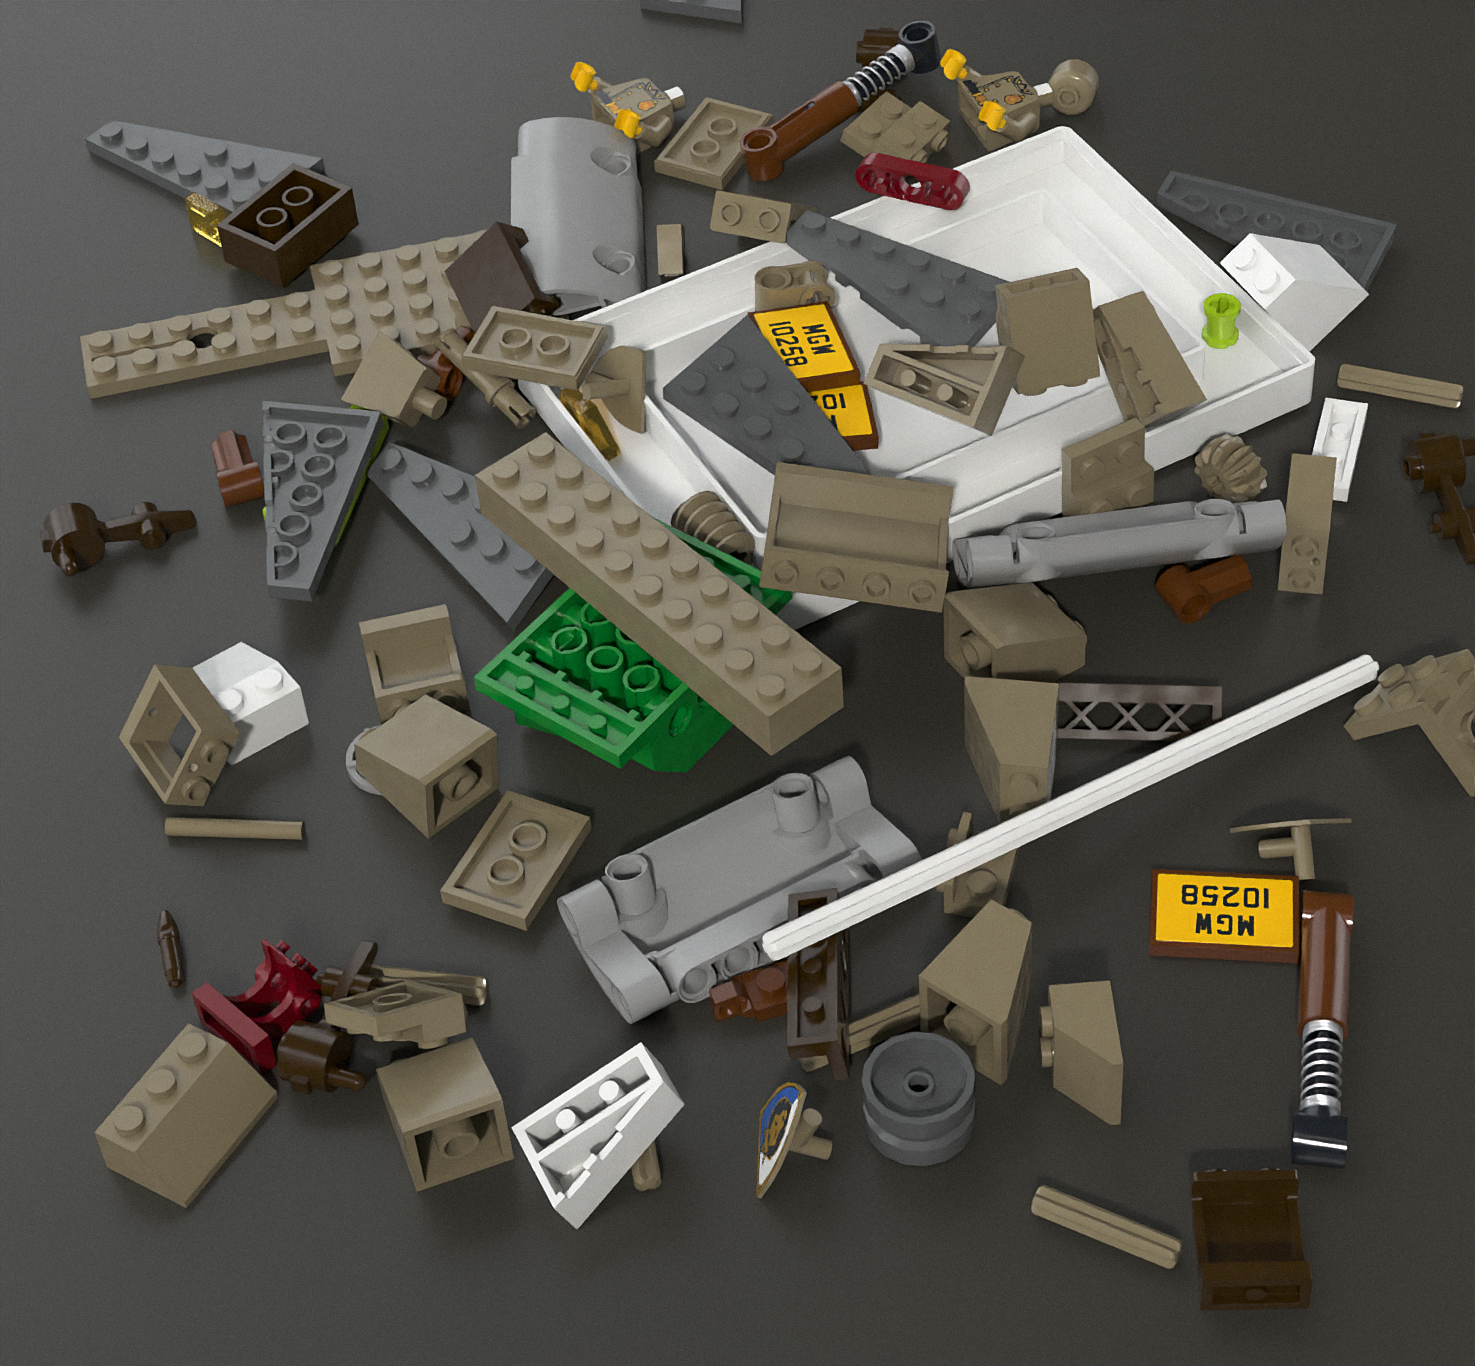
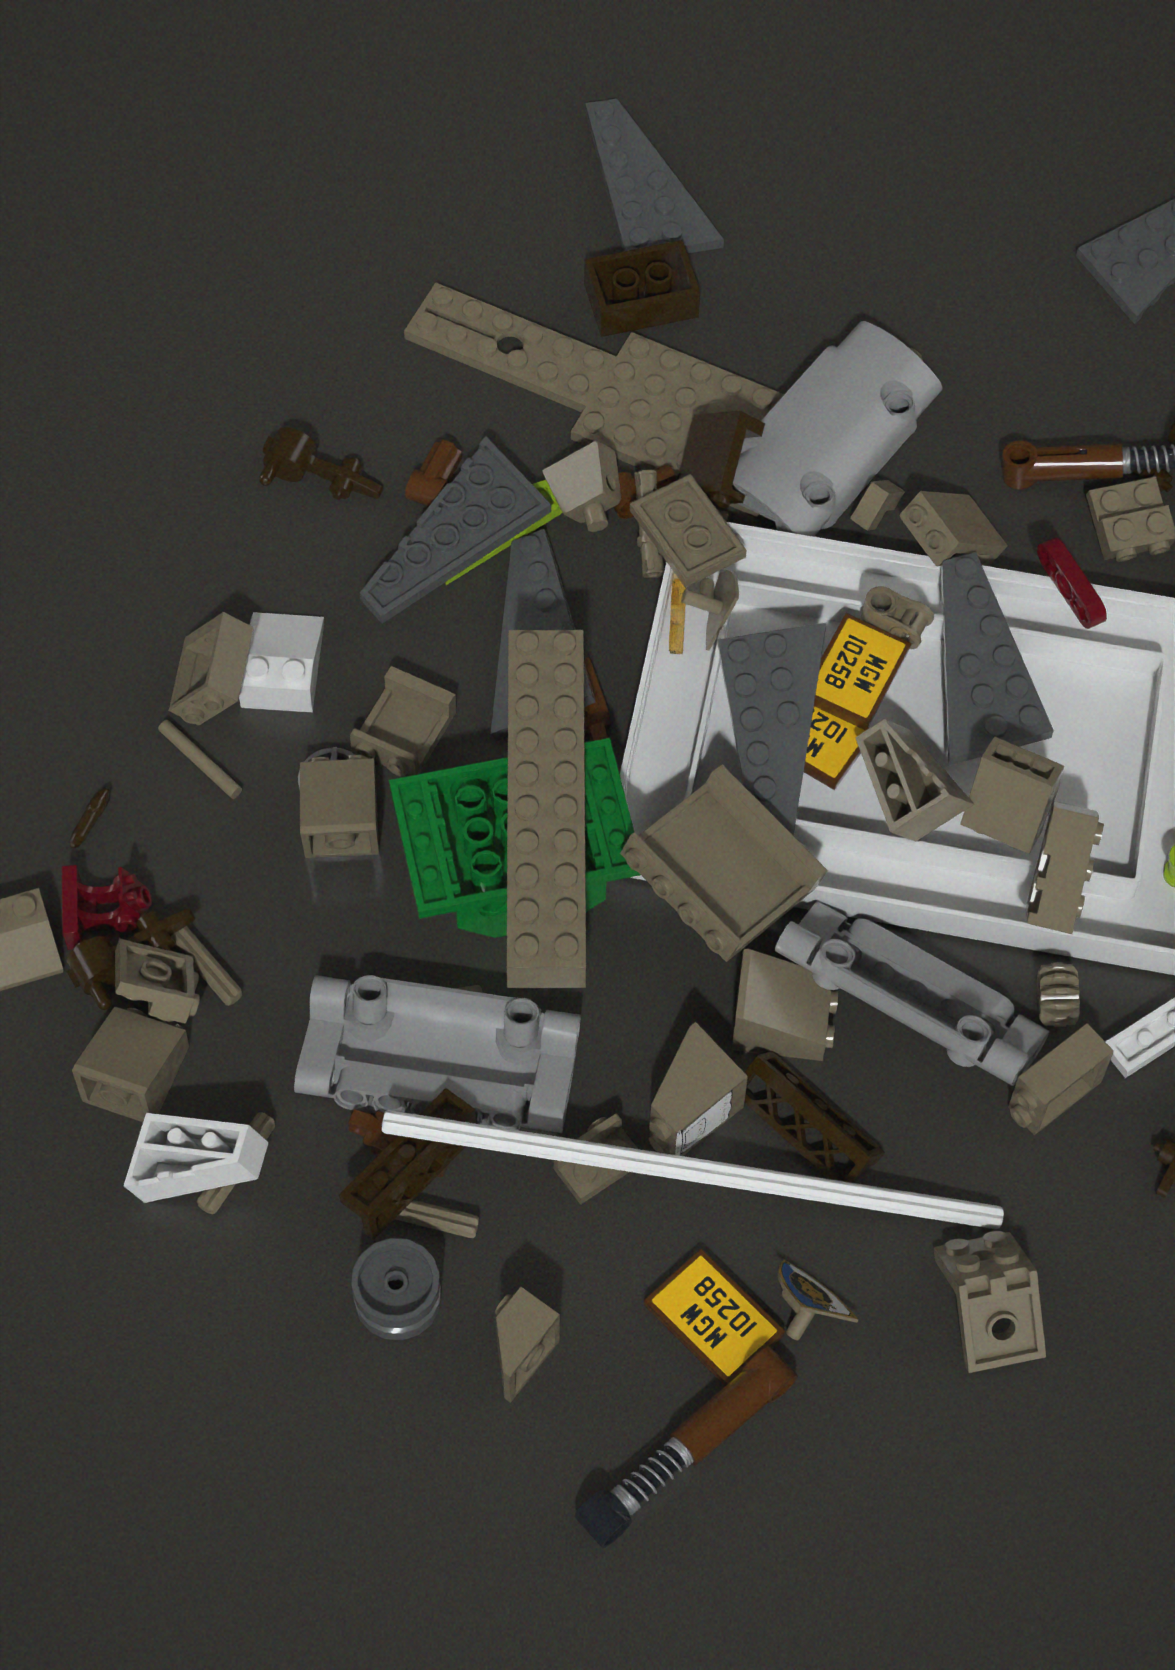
camera: 35 degrees right, 15 degrees up
(204, 216) = (599, 235): clear yellow tile -> none
(516, 860) = (334, 920): dark tan plate -> none
(632, 106) = (966, 355): dark tan torso -> none
(709, 145) = (993, 422): dark tan tile -> none
(712, 523) = (665, 775): dark tan piece -> none
(784, 1130) = (309, 1254): shield -> none
(981, 988) = (504, 1249): dark tan slope -> none
(1106, 1226) = (429, 1463): dark tan axle -> none
(1107, 472) = (965, 933): dark tan plate -> none
(1193, 592) = (936, 1069): reddish brown piece -> none
(1249, 1240) = (497, 1545): dark brown panel -> none

